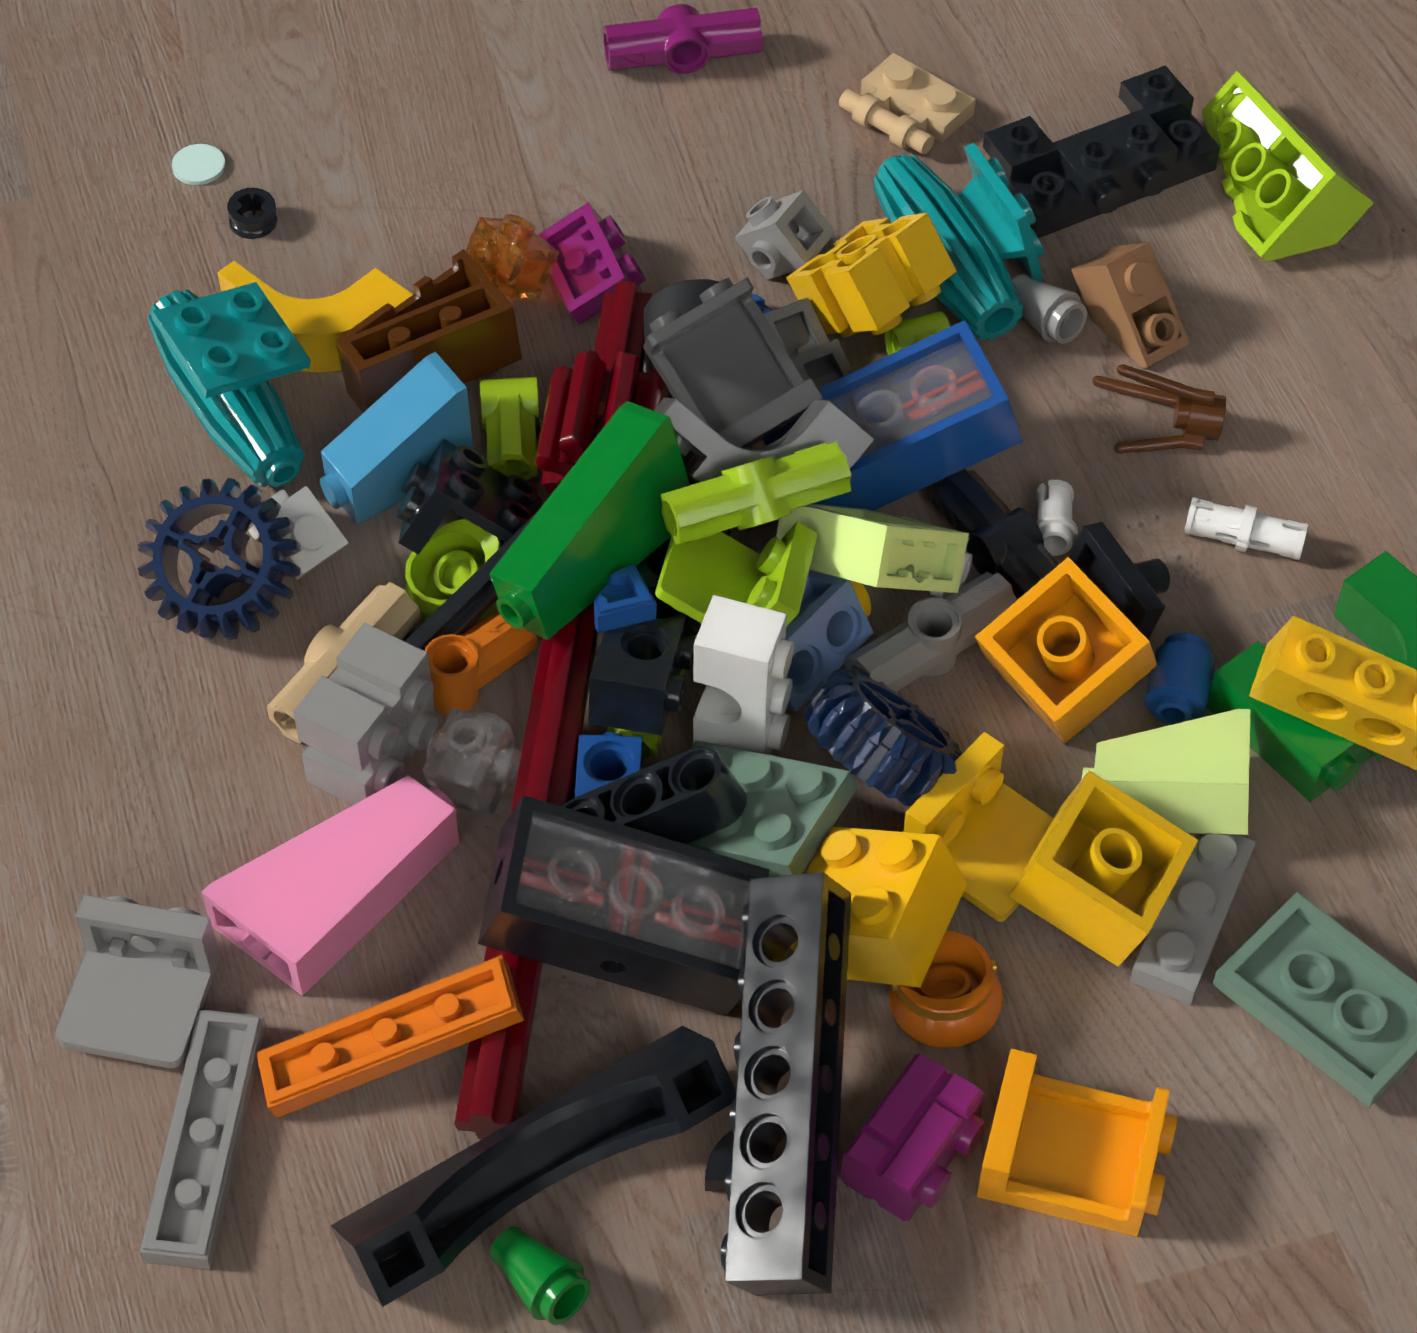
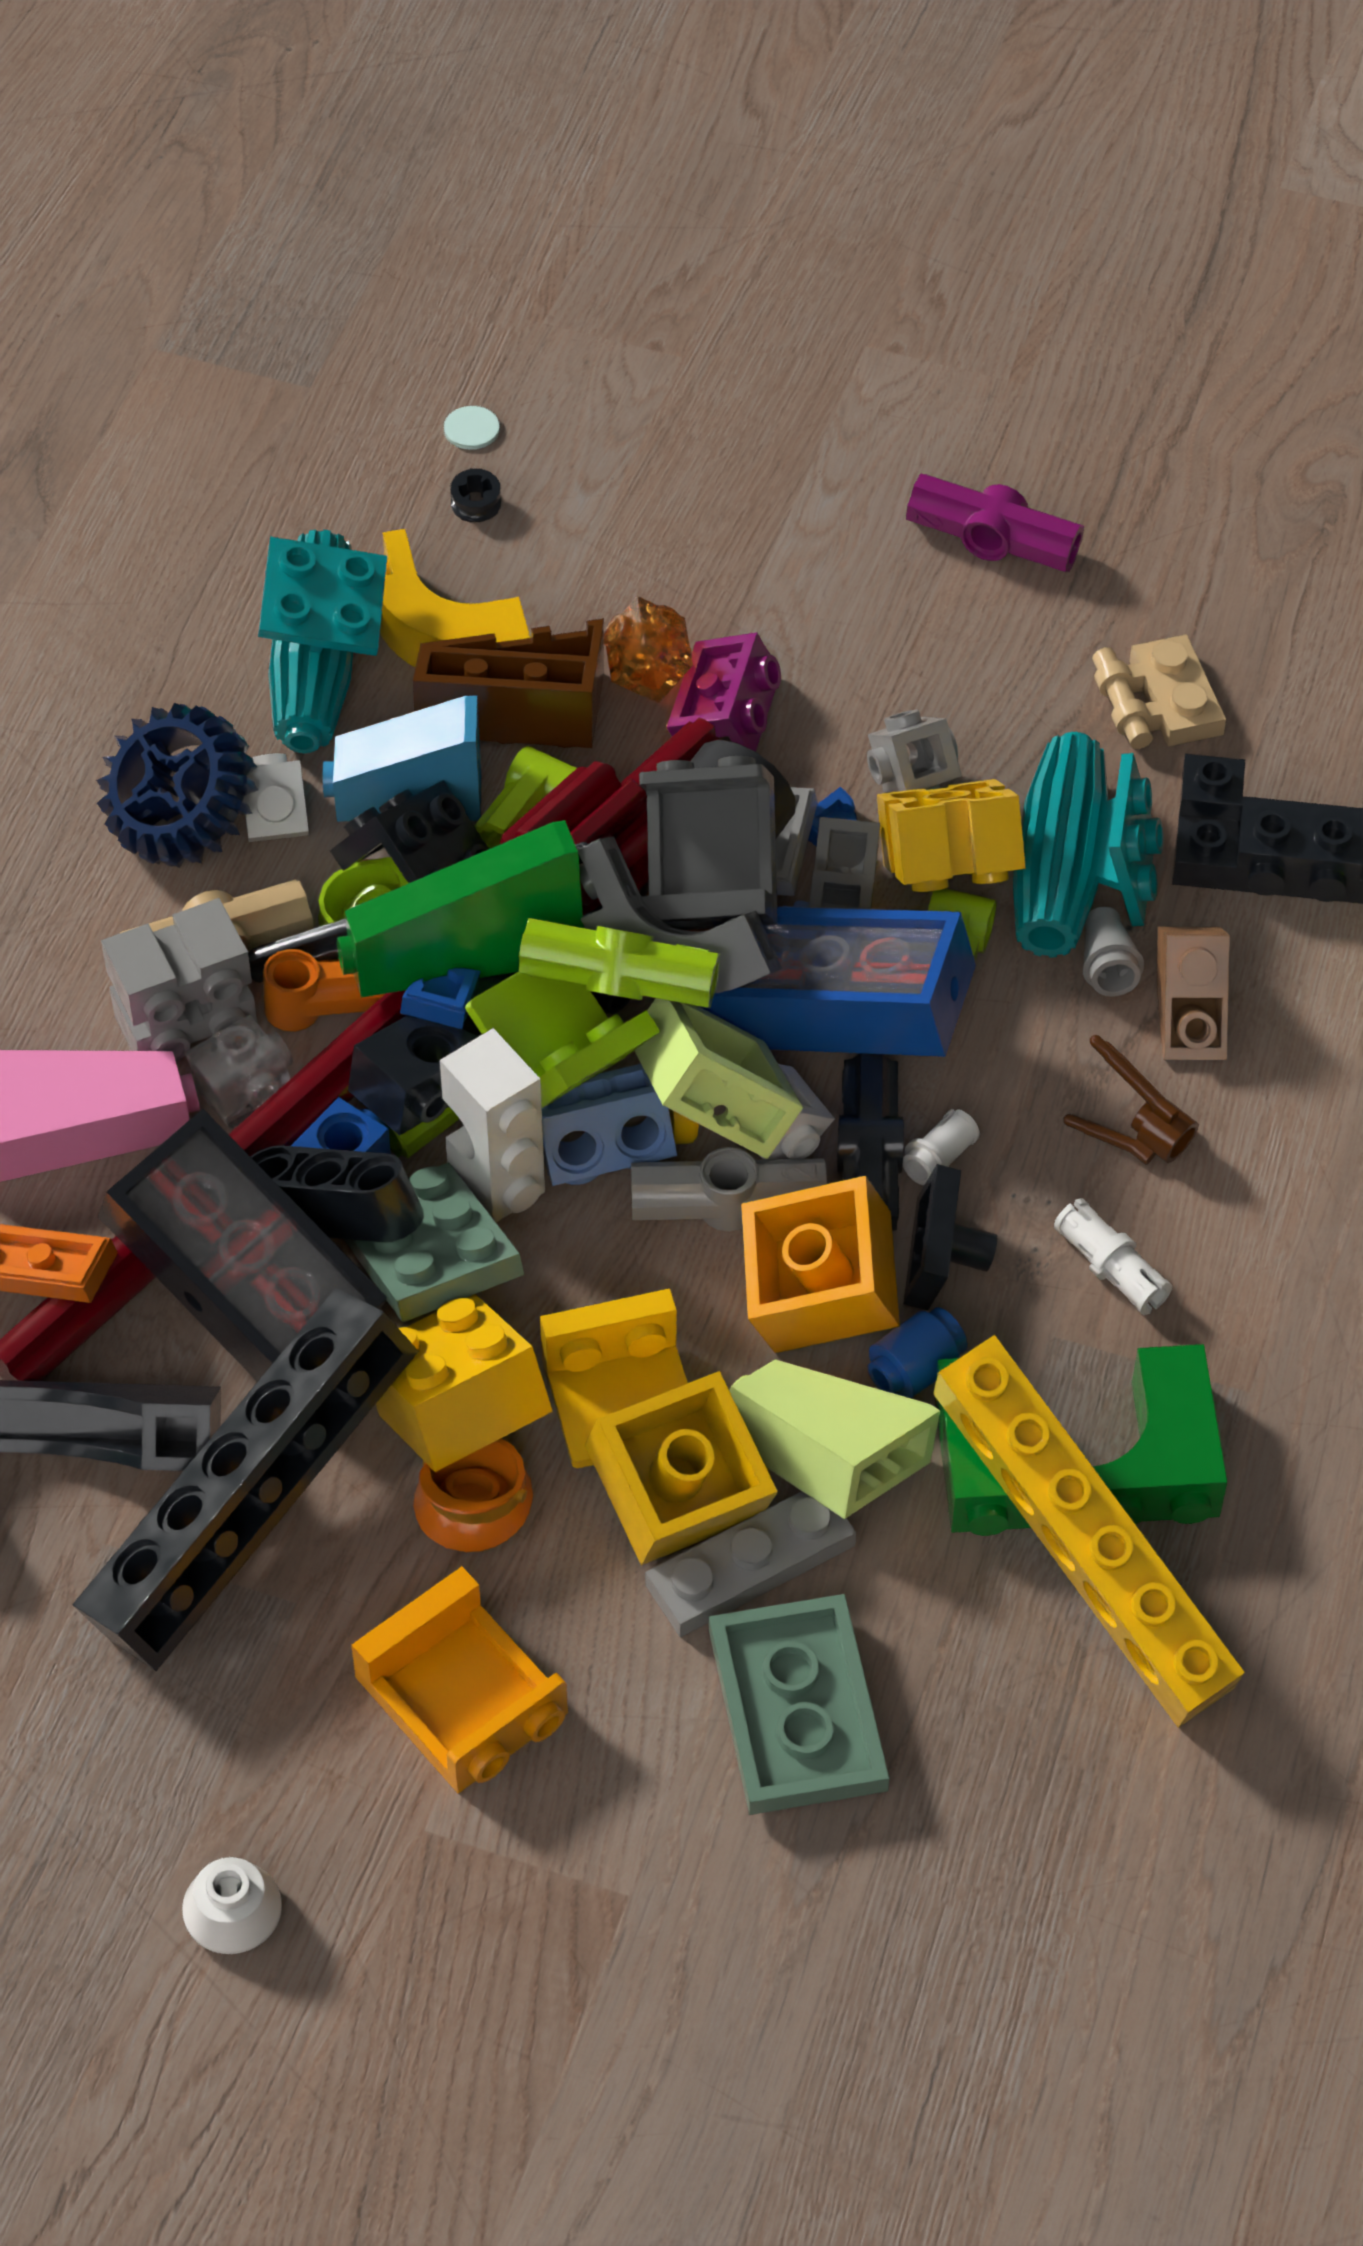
camera: 35 degrees right, 0 degrees up
(880, 736) = (582, 1238): dark blue gear -> none
(914, 1137) = (330, 1592): magenta brick -> none

